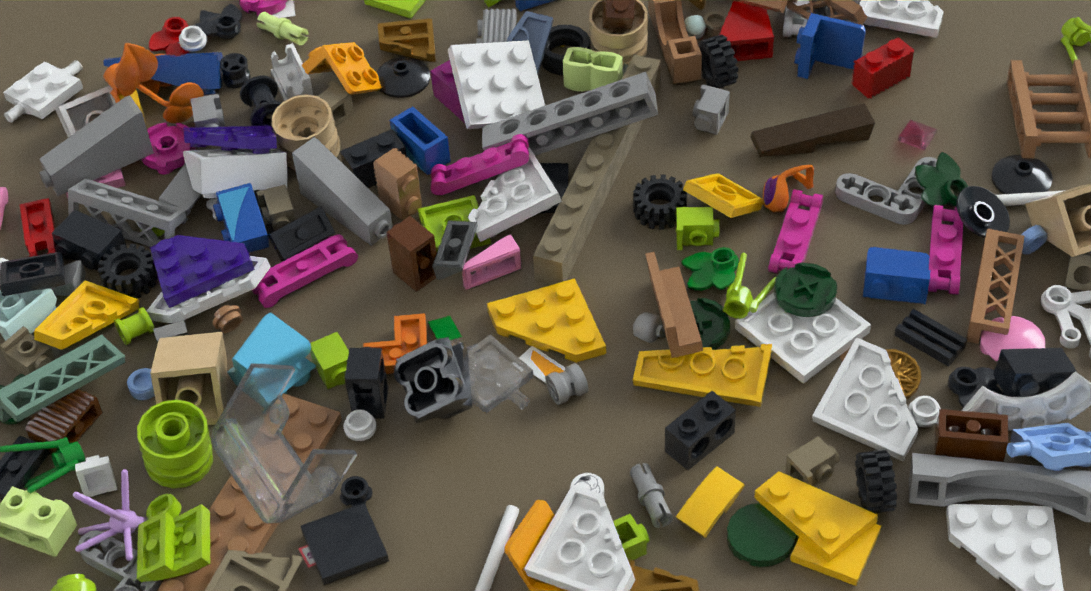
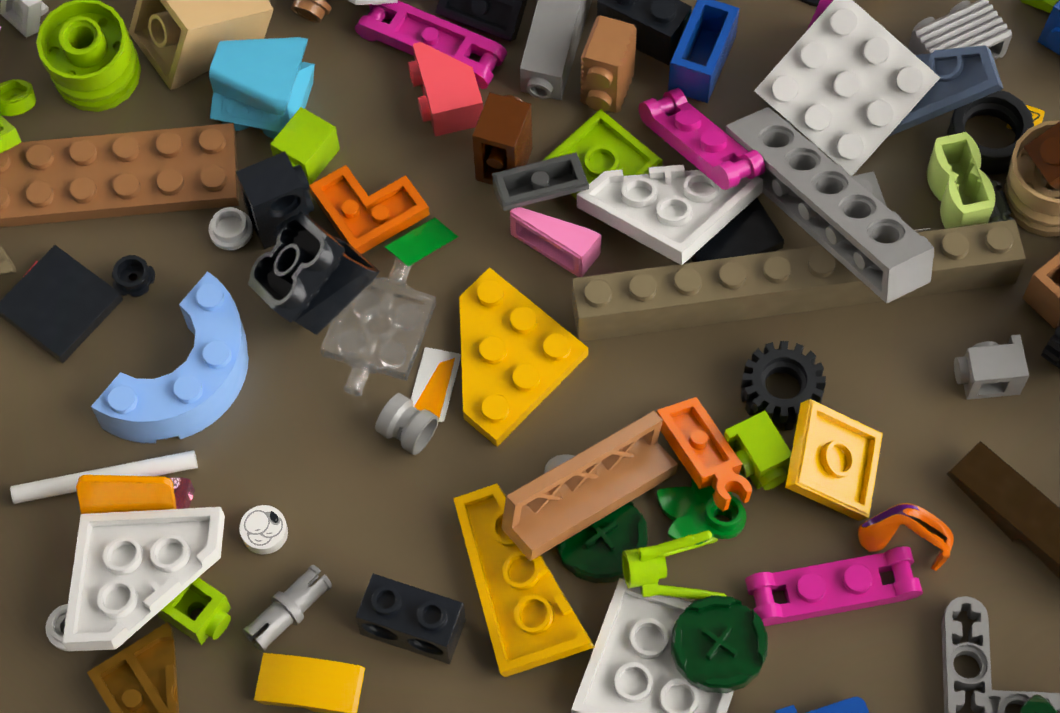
camera: 60 degrees right, 15 degrees up
(261, 458) = (117, 153): clear windscreen -> none
(347, 273) = (448, 89): none -> coral slope
(456, 462) = (197, 389): none -> light blue brick
(682, 249) = (704, 451): none -> orange plate

